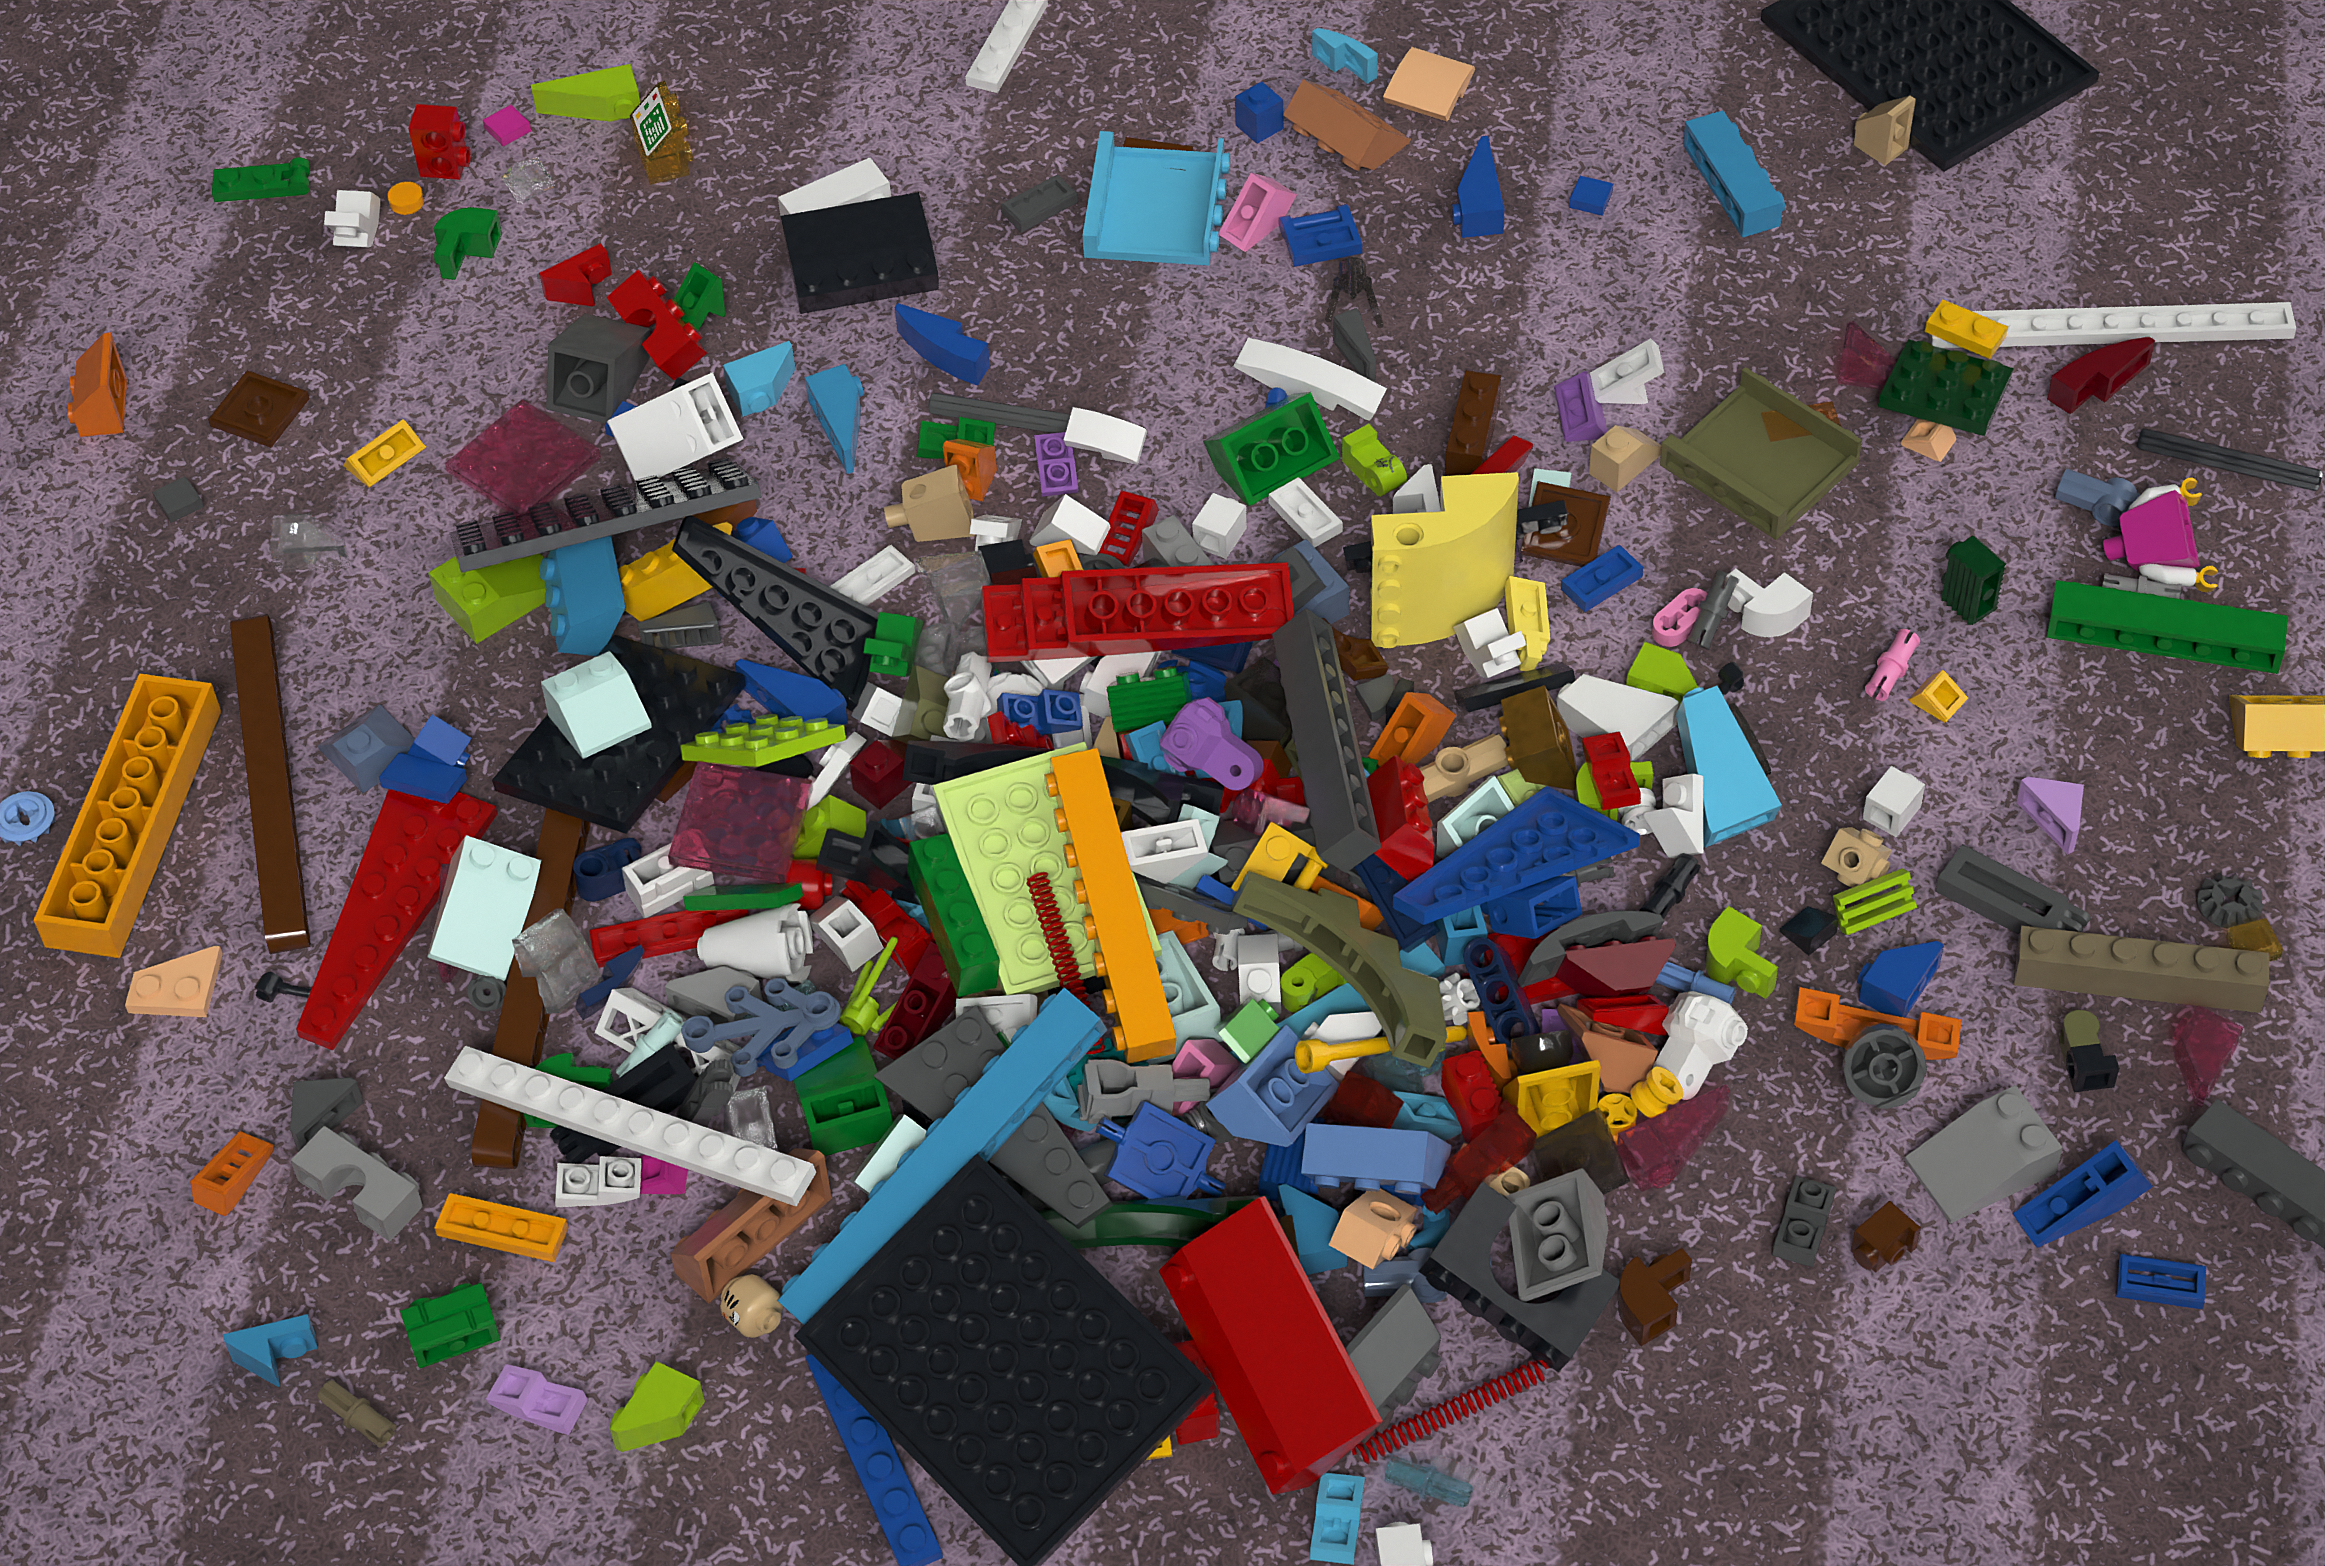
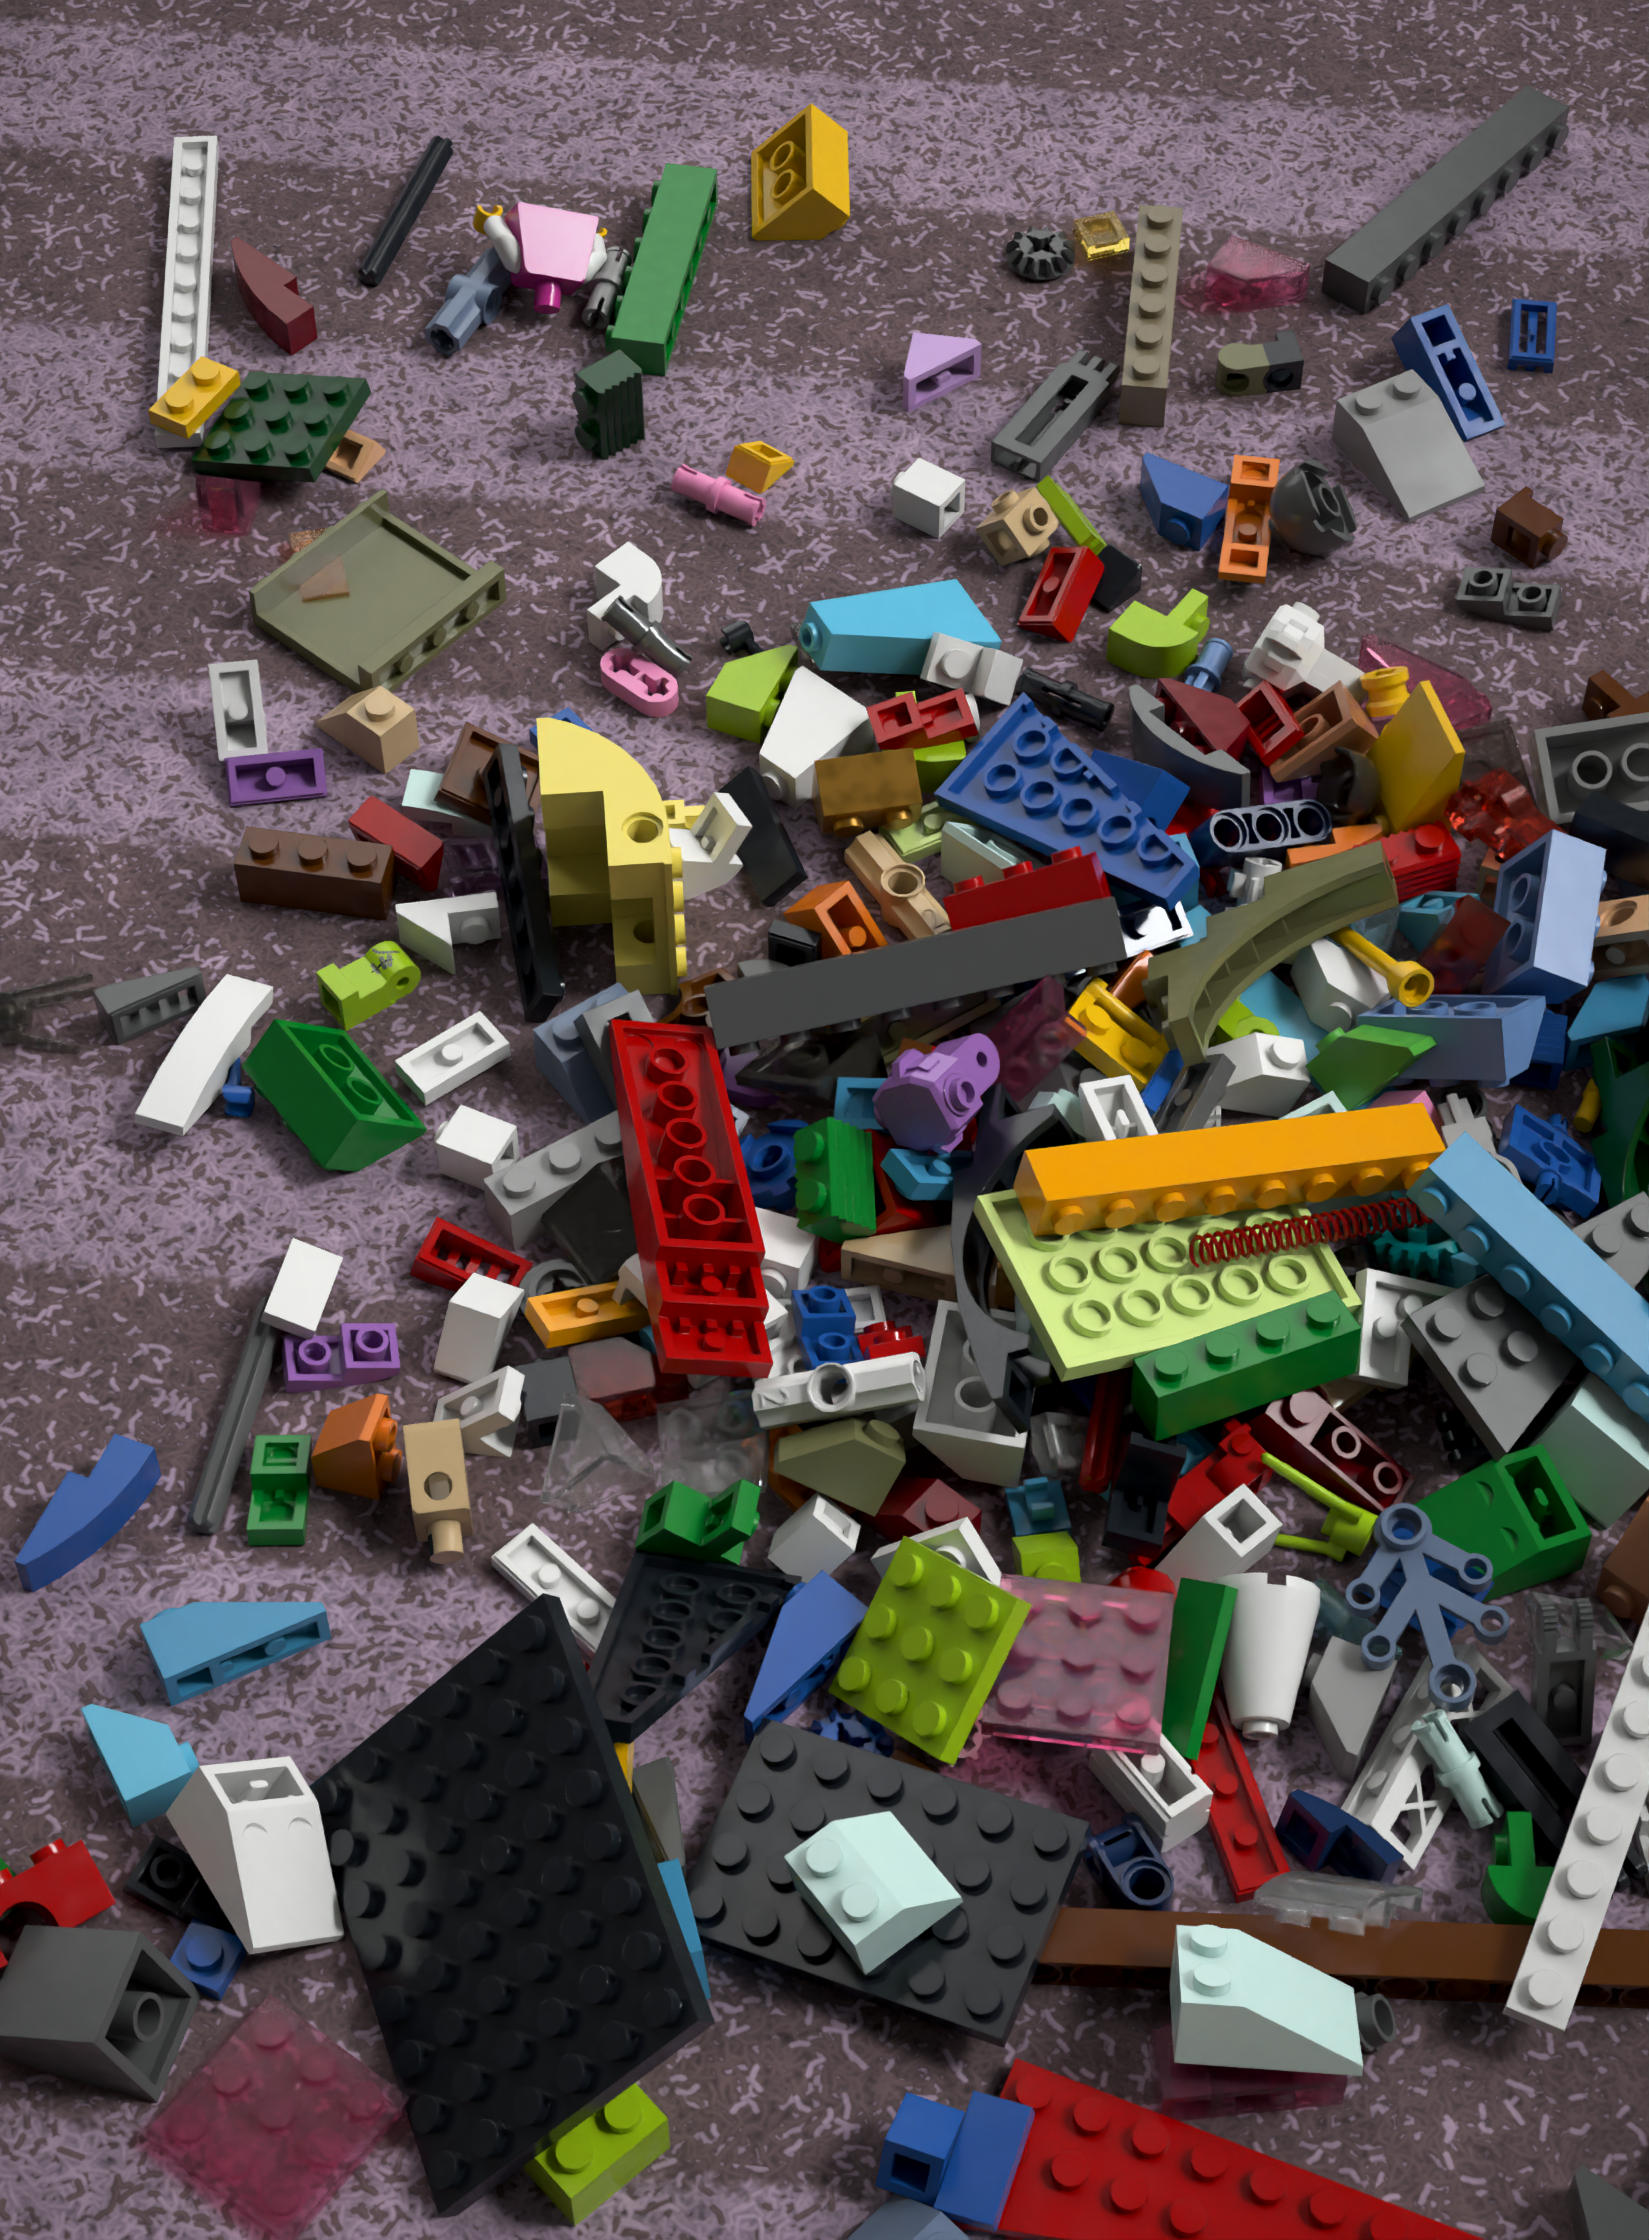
camera: 95 degrees left, 0 degrees up
(1787, 891) = (1062, 593): none -> red slope

